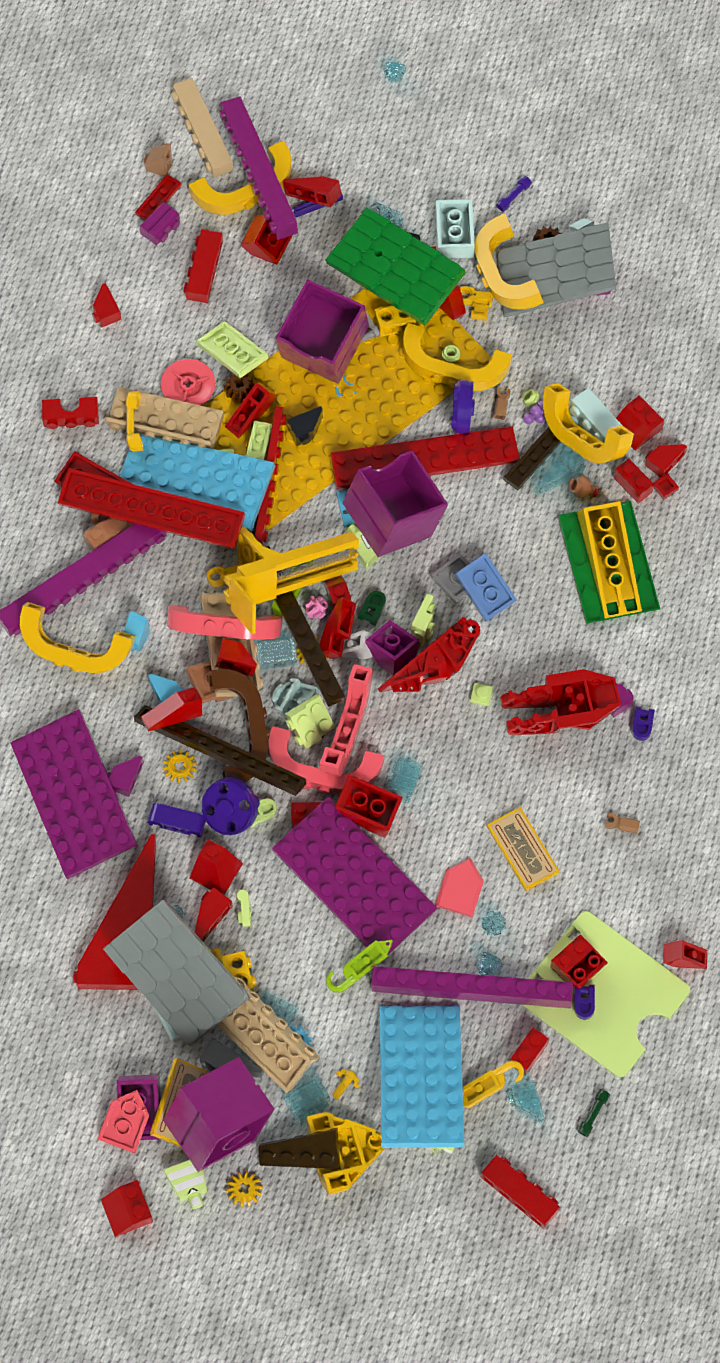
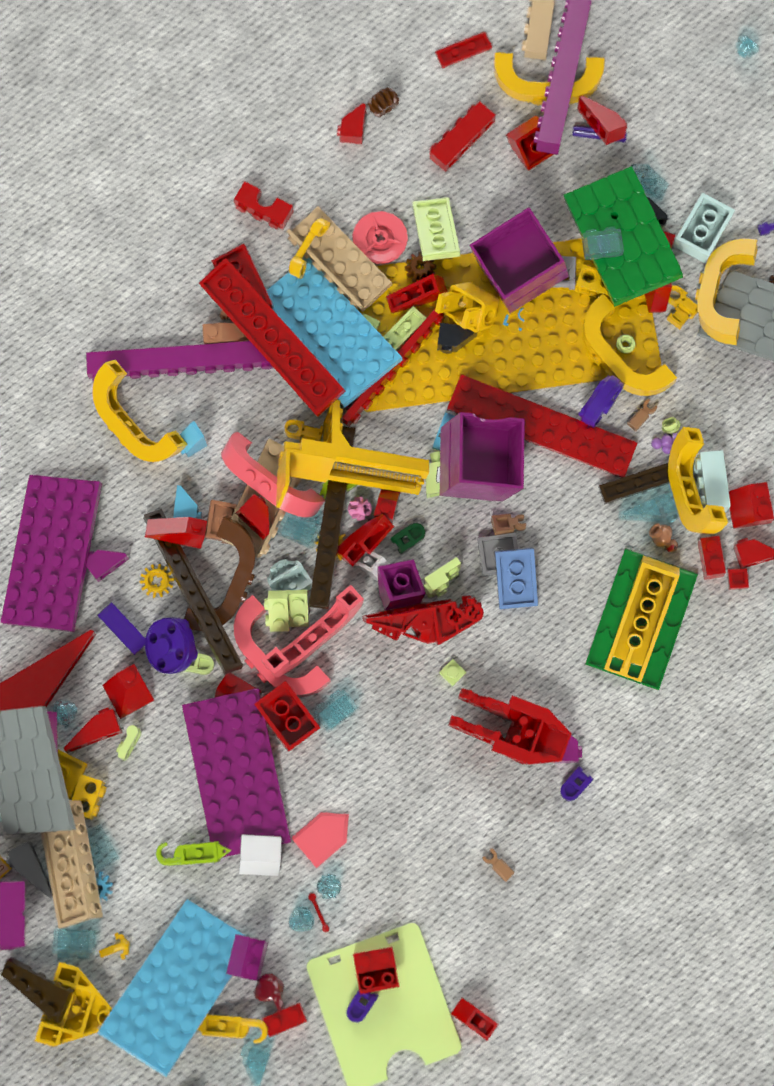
camera: 35 degrees right, 10 degrees up
(119, 274) = (383, 102): none -> reddish brown gear
(159, 160) = (484, 15): medium nougat slope -> none
(160, 224) = (449, 75): magenta brick -> none
(298, 396) = (476, 309): none -> yellow piece
(384, 279) = (602, 243): none -> clear light blue brick
(420, 932) = (260, 855): none -> white slope
(445, 551) = (505, 524): none -> medium nougat plate
(464, 1017) = (247, 957): none -> magenta slope
(472, 987) = (273, 933): magenta brick -> none
(484, 942) = (312, 897): none -> red hinge
(499, 1032) = (270, 989): none -> dark red hat
(523, 849) = (398, 834): tile -> none

